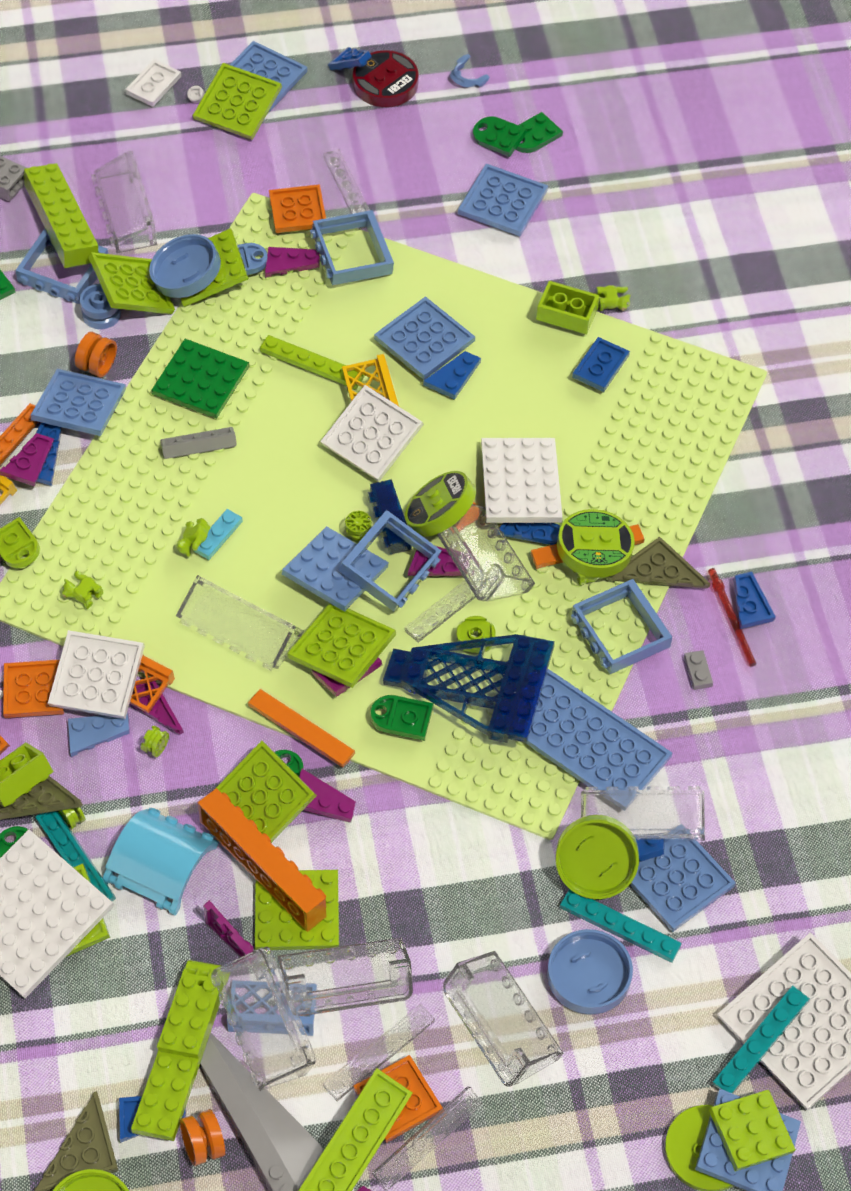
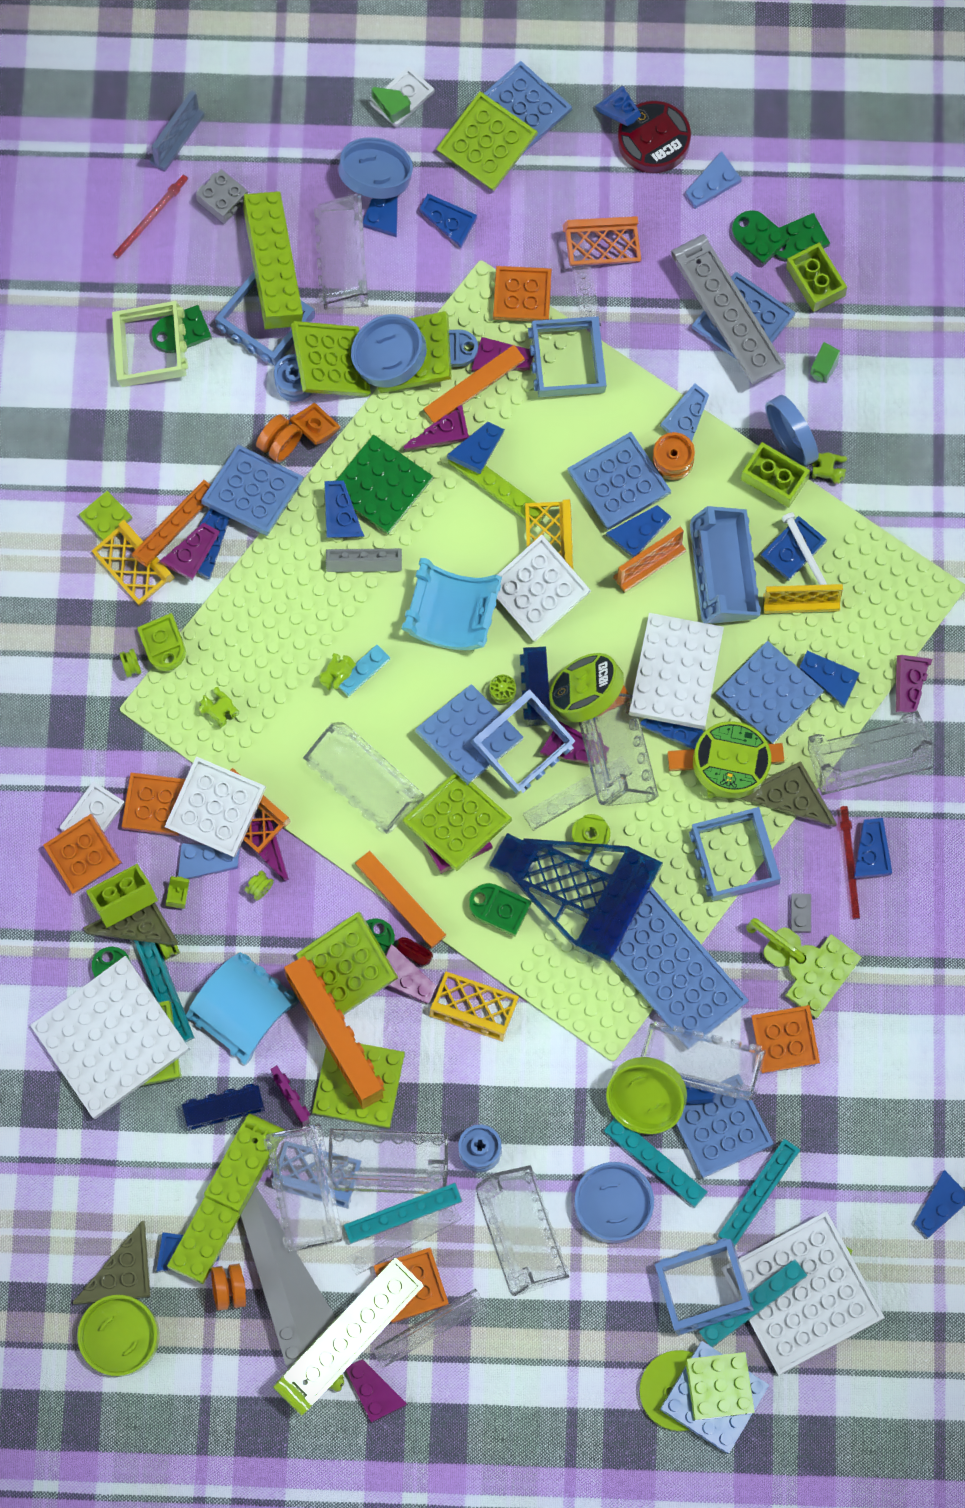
camera: 15 degrees right, 15 degrees up
(72, 763) = (177, 892): none -> lime bracket
(129, 341) = (315, 424): none -> orange slope
(141, 133) = (375, 168): none -> medium blue piece
(144, 84) = (391, 103): none -> bright green slope
(154, 167) = (382, 215): none -> blue wing
(159, 959) = (222, 1107): none -> clear blue brick
(166, 405) = (339, 512): none -> blue wing
(195, 94) = (445, 120): white tile -> none
(215, 164) = (449, 218): none -> blue wing
(251, 325) = (448, 430): none -> magenta wing
(270, 283) = (474, 384): none -> orange tile
(285, 332) = (477, 448): none -> blue wing
(292, 467) = (451, 608): none -> medium azure hinge
(333, 776) = (414, 951): none -> dark red plate
(356, 146) = (604, 225): none -> orange fence
(373, 1025) = (403, 1213): none -> teal plate
(396, 826) = (467, 1020): none -> yellow fence
(438, 945) = (476, 1137): none -> medium blue wheel
(446, 104) = (713, 181): none -> medium blue wing
(457, 78) = (731, 147): medium blue helmet -> none
(470, 307) = (673, 456): none -> orange wheel
(471, 392) = (650, 560): none -> orange fence
(472, 277) = (687, 413): none -> medium blue wing
(487, 187) = (727, 308): none -> light grey hinge
(541, 386) = (724, 565): none -> medium blue windscreen
(559, 155) = (816, 277): none -> lime brick
(573, 263) = (791, 430): none -> medium blue piece
(586, 216) = (825, 363): none -> bright green slope
(591, 339) = (789, 519): none -> white bar
(613, 484) = (769, 692): none -> medium blue plate
(618, 406) = (802, 598): none -> yellow fence
(666, 461) = (832, 677): none -> blue wing
(723, 782) = (787, 1038): none -> orange plate
(723, 1060) = (713, 1316): none -> medium blue window
(725, 520) = (871, 754): none -> clear windscreen
(729, 716) = (820, 973): none -> lime plate
(733, 934) = (759, 1192): none -> teal plate
(740, 453) = (909, 680): none -> magenta wing

